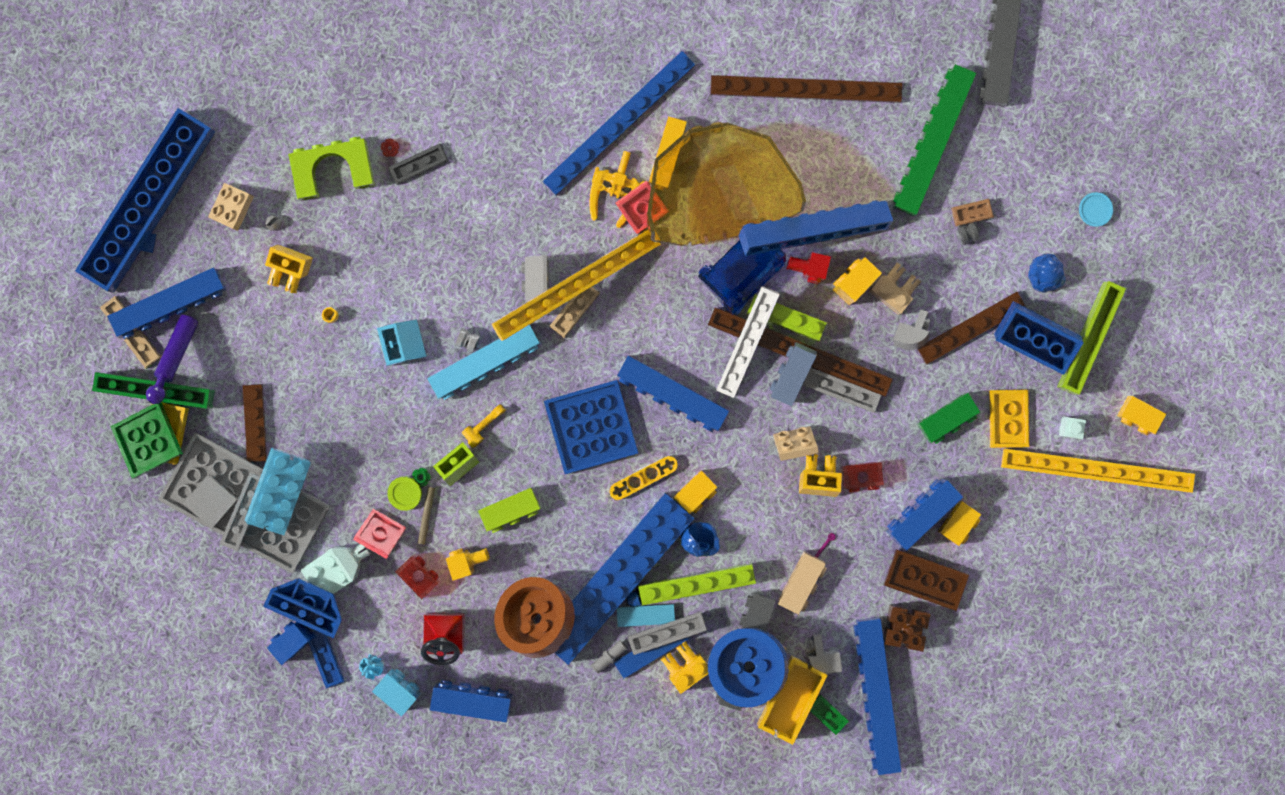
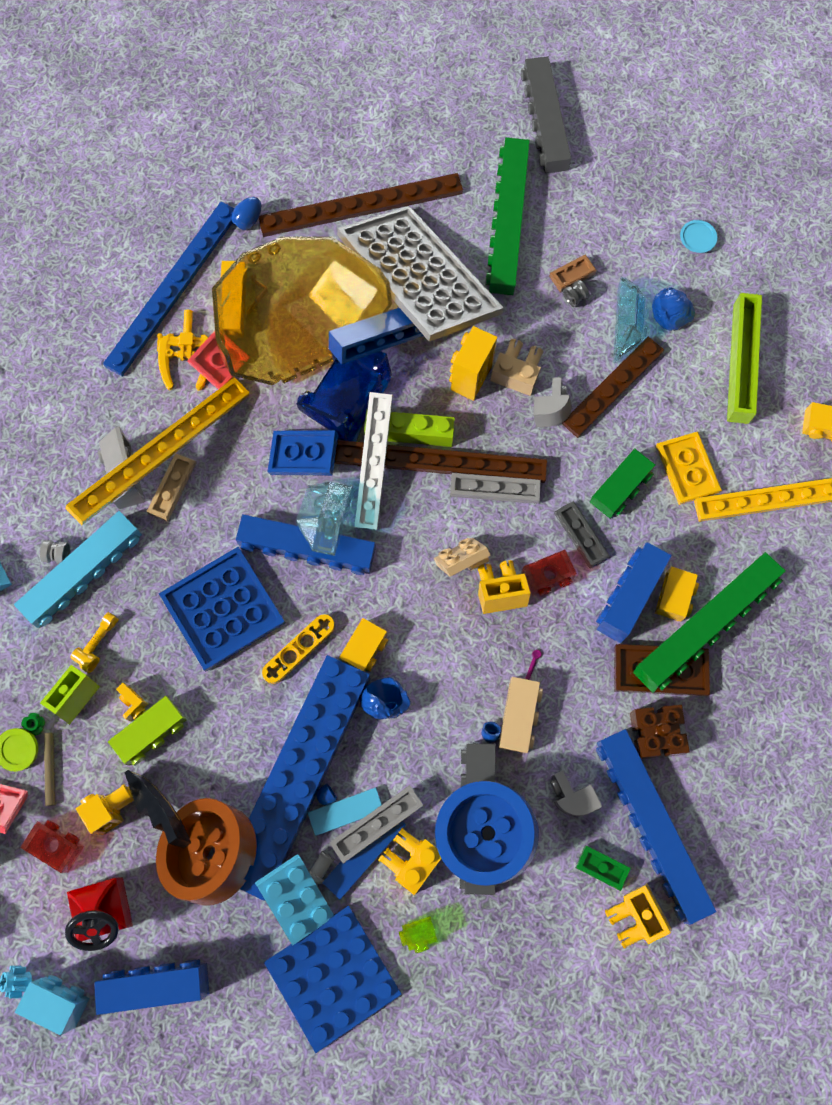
camera: 20 degrees left, 15 degrees down
(502, 479) = (130, 697): none -> yellow bracket
(502, 568) = (154, 804): none -> black slope
(591, 670) = (294, 899): none -> medium azure plate
(602, 732) = (332, 979): none -> blue plate
(675, 720) = (418, 934): none -> clear neon green brick
(691, 314) = (303, 453): none -> blue plate
(695, 374) = (325, 514): none -> clear light blue wedge
(697, 584) = (395, 753): lime brick -> none
(702, 72) = (246, 213): none -> blue animal
(774, 586) = (491, 732): none -> blue hinge
(792, 373) = (434, 482): sand blue brick -> none
(792, 705) = (555, 867): yellow piece -> none
(813, 268) = (420, 367): red brick -> none
(836, 182) = (422, 273): none -> light grey plate
(849, 756) = (648, 915): none -> yellow brick
(900, 449) = (581, 534): none -> dark grey tile
(977, 554) = (708, 622): none -> green brick
(1006, 272) = (629, 319): none -> clear light blue wedge
(1038, 338) = (689, 370): blue brick -> none
(1072, 428) = (761, 455): light aqua brick -> none

